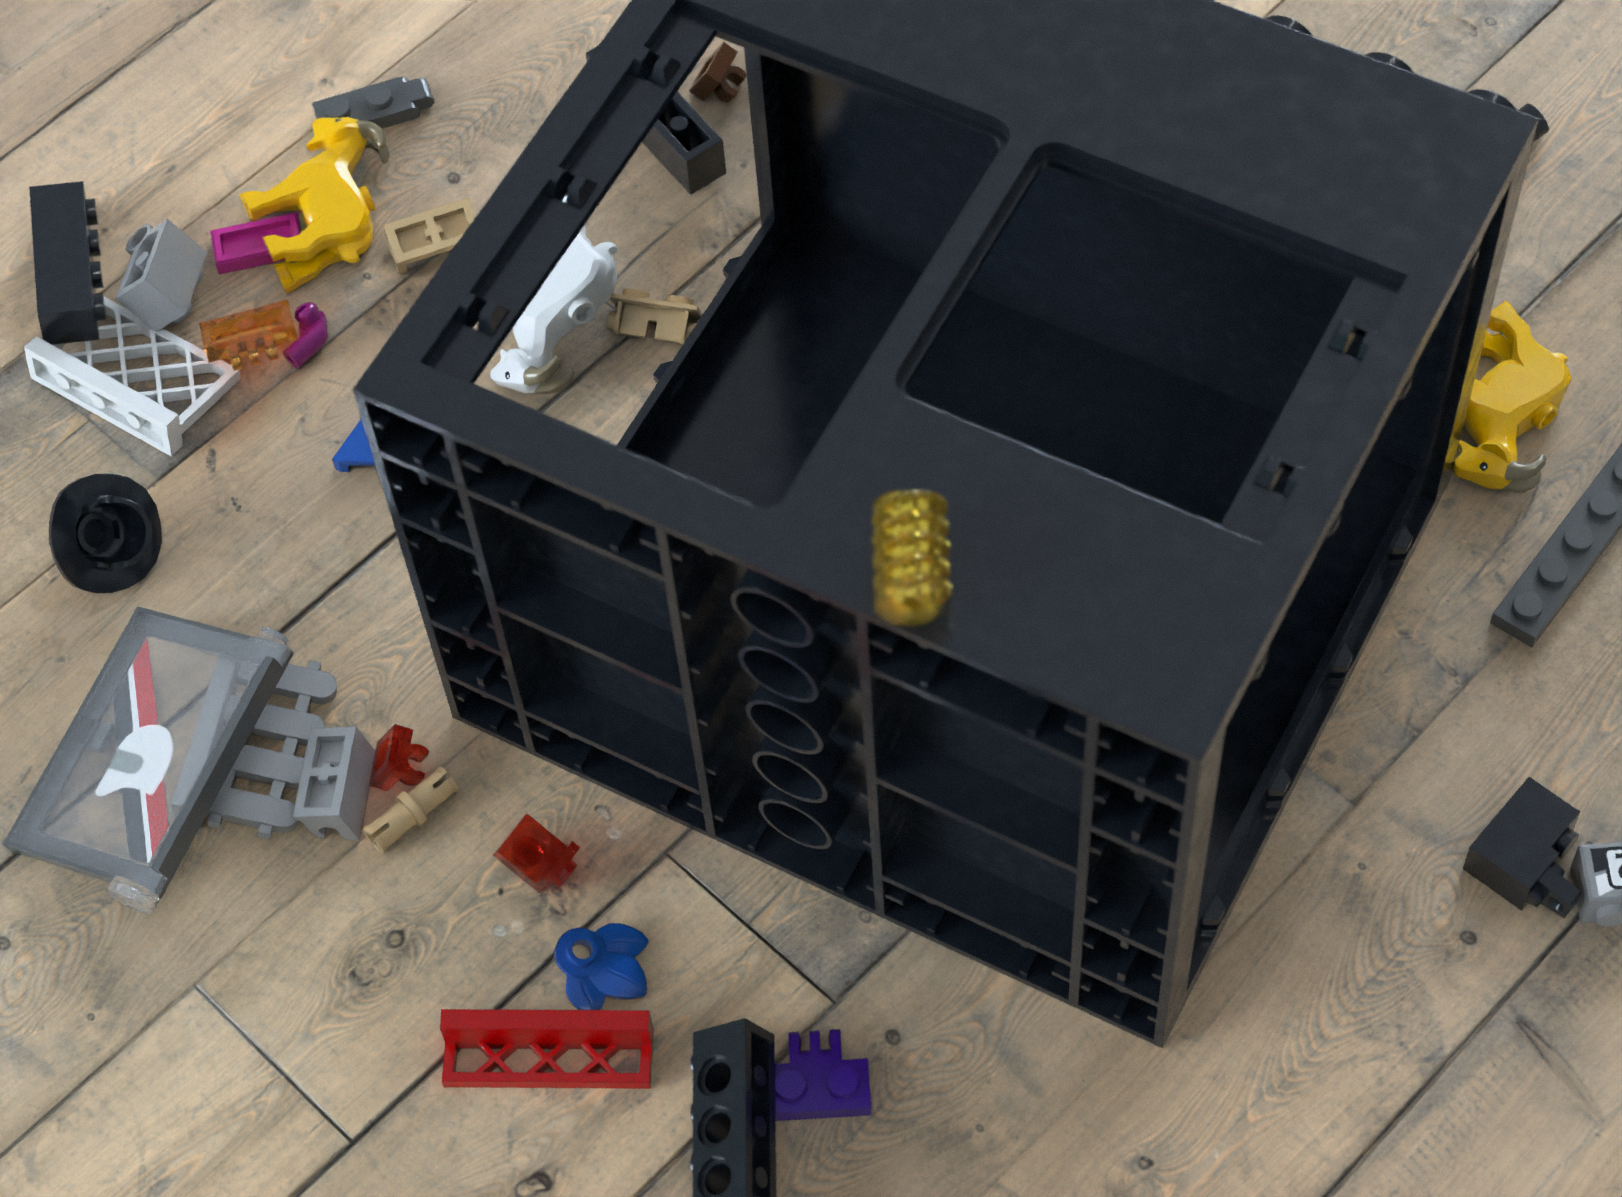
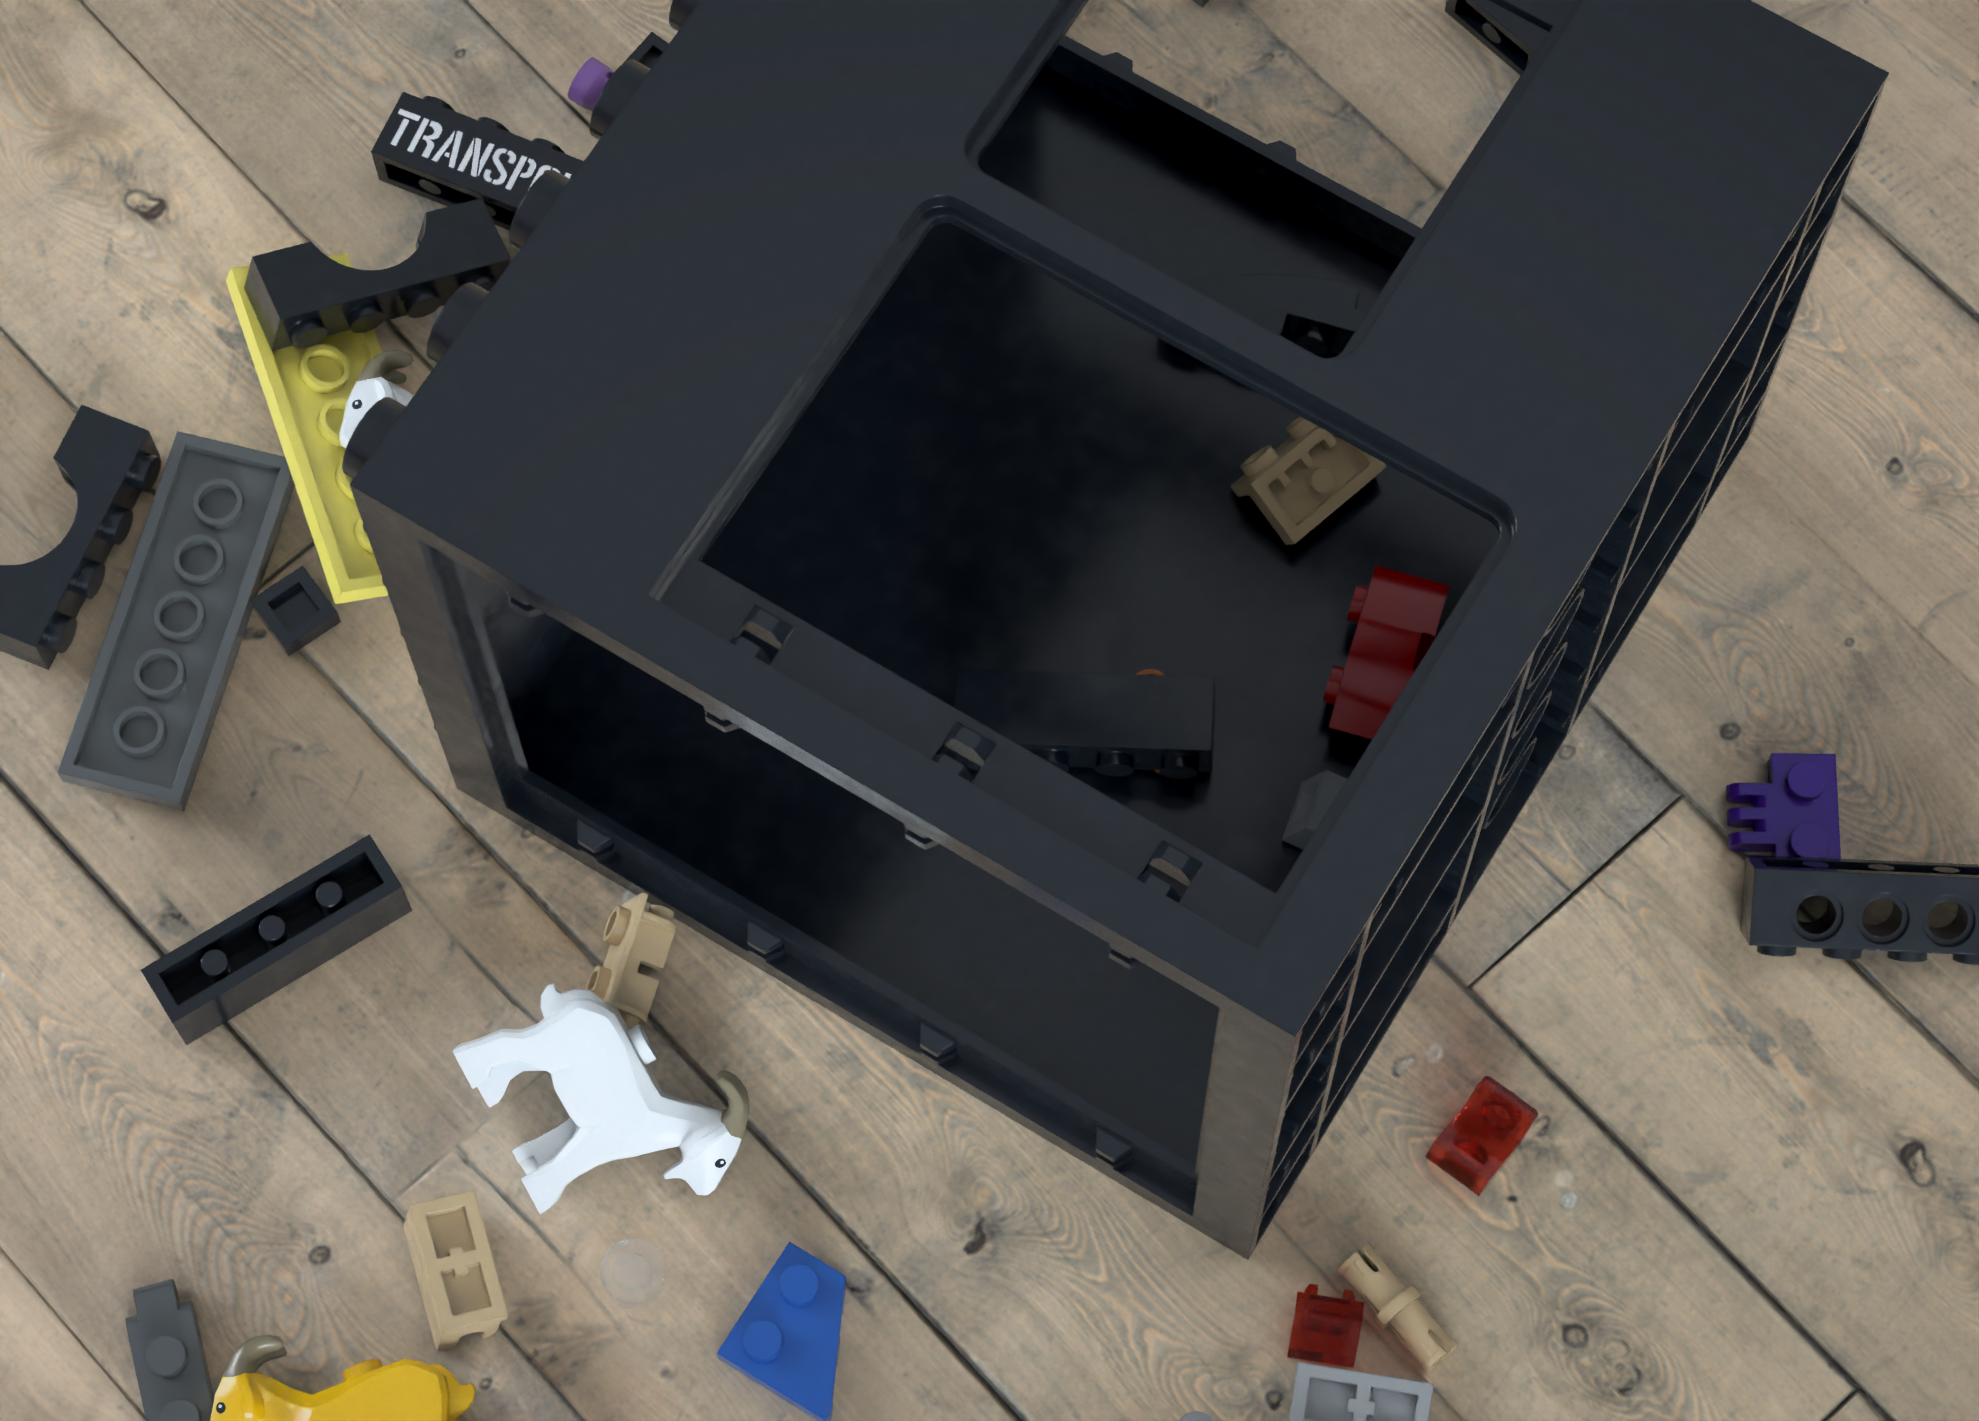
camera: 90 degrees left, 10 degrees up
(546, 1030) = (1731, 1128): red fence -> none
(608, 970) = (1638, 1059): blue plate -> none
(715, 74) = (202, 860): reddish brown tile -> none
(910, 556) = (1627, 339): clear yellow piece -> none

